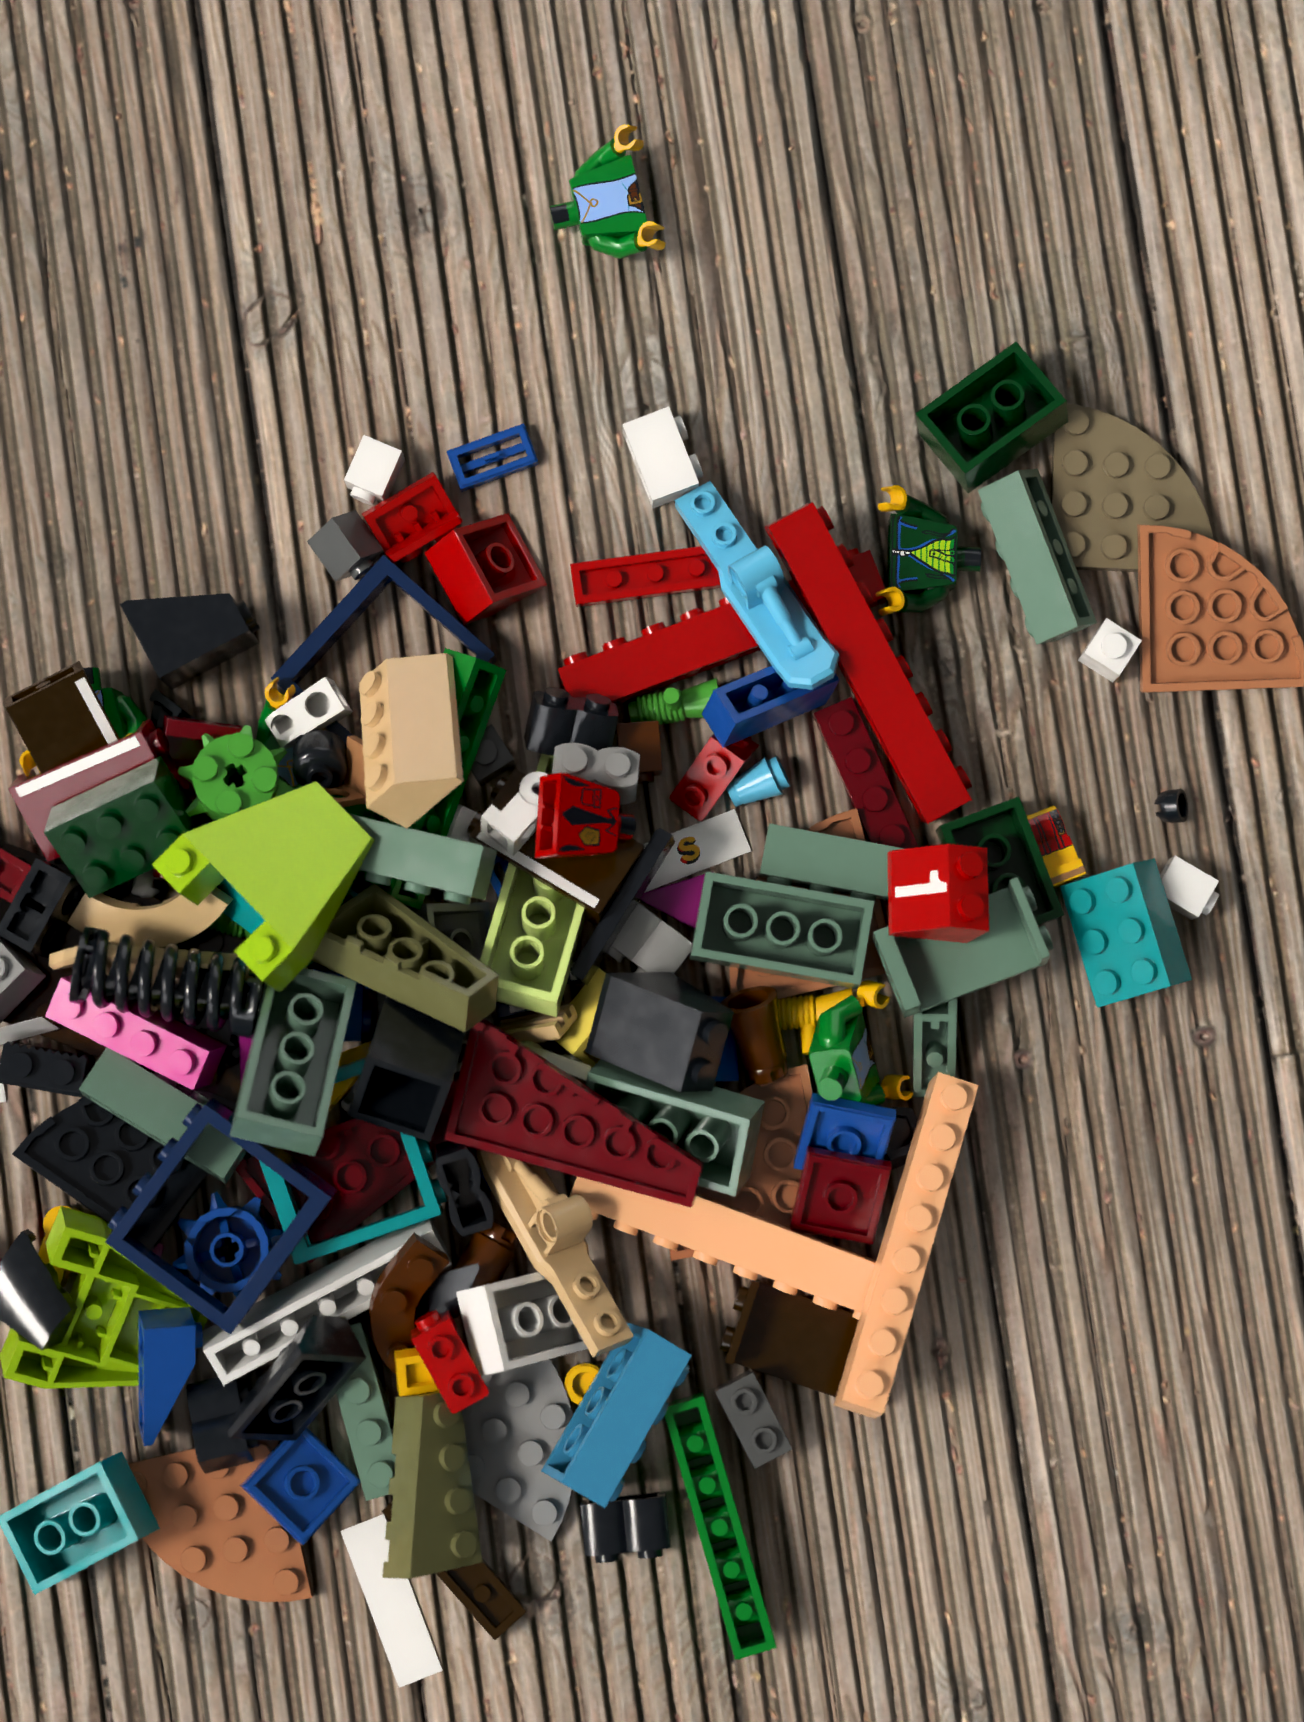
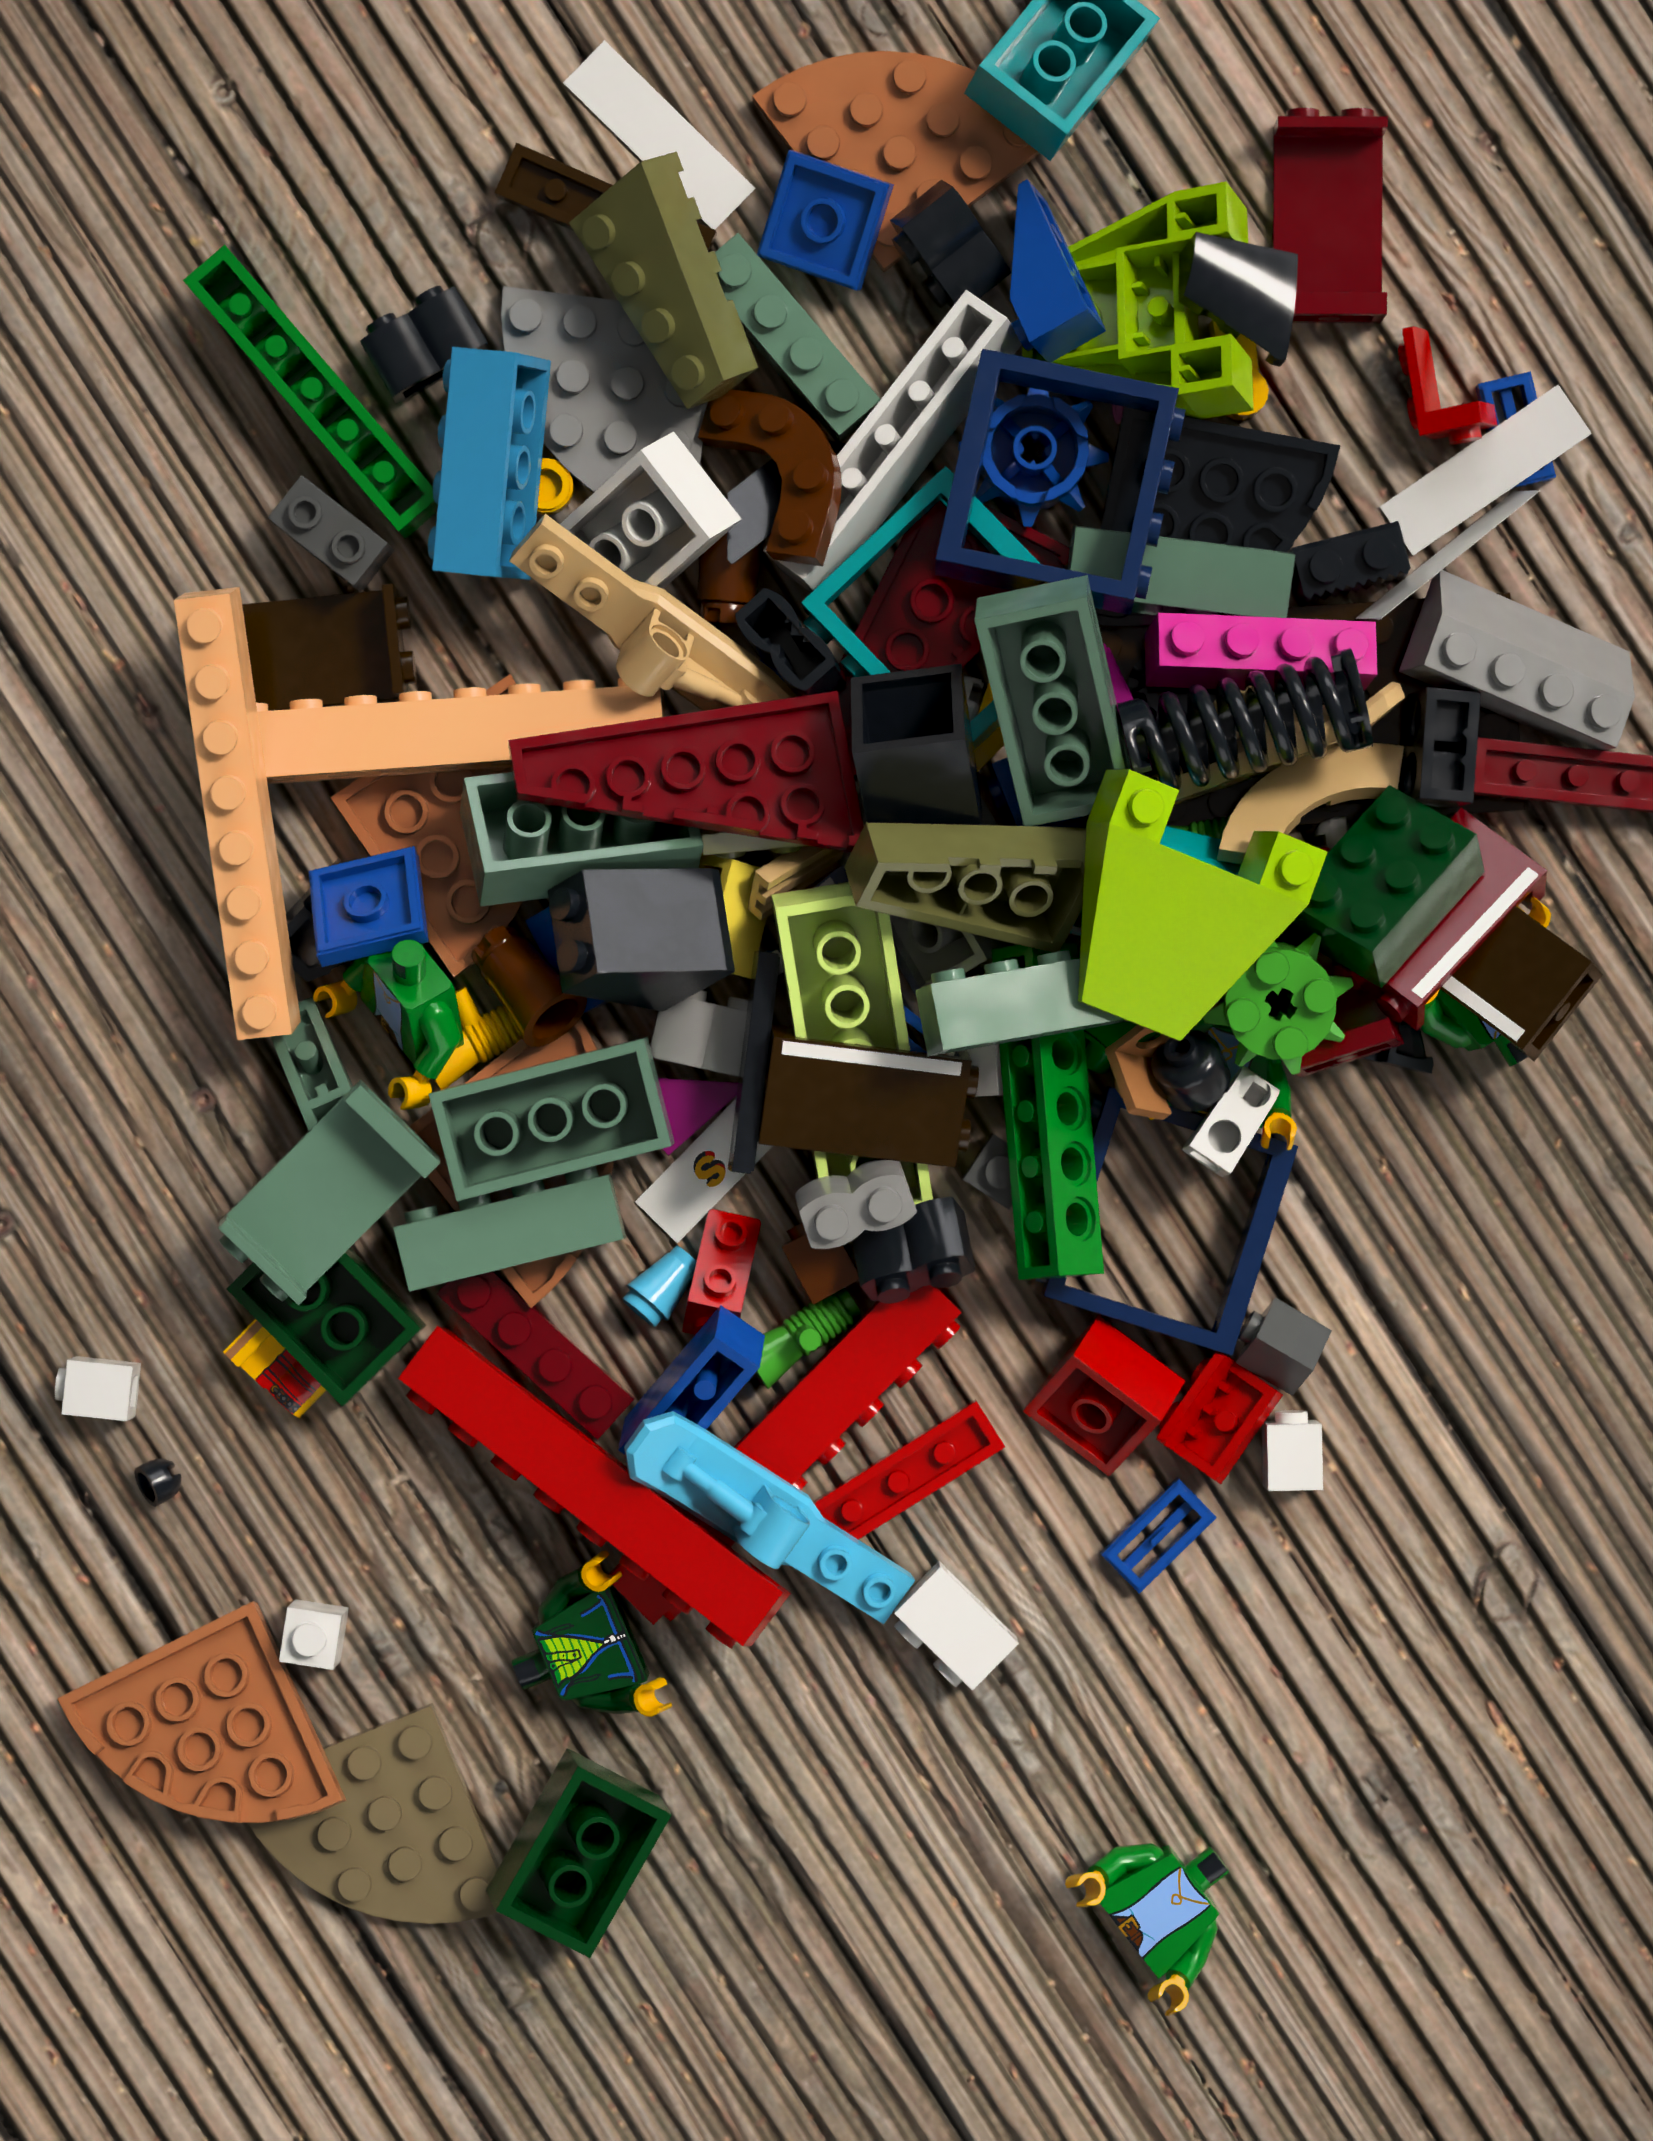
camera: 155 degrees right, 5 degrees up
(191, 633) = (1418, 1155): black slope -> none
(299, 1381) = (877, 332): black slope -> none
(410, 735) = (1093, 1145): tan slope -> none
(412, 1373) = (745, 409): yellow plate -> none
(448, 1360) = (714, 435): red bracket -> none
(517, 819) = (918, 1115): white leg -> none
(578, 818) = (848, 1136): red torso -> none
(840, 1195) = (343, 838): dark red tile -> none
(938, 892) = (383, 1244): red slope -> none
(1036, 556) = (451, 1708): sand green brick -> none
(1126, 932) = (144, 1301): teal brick -> none

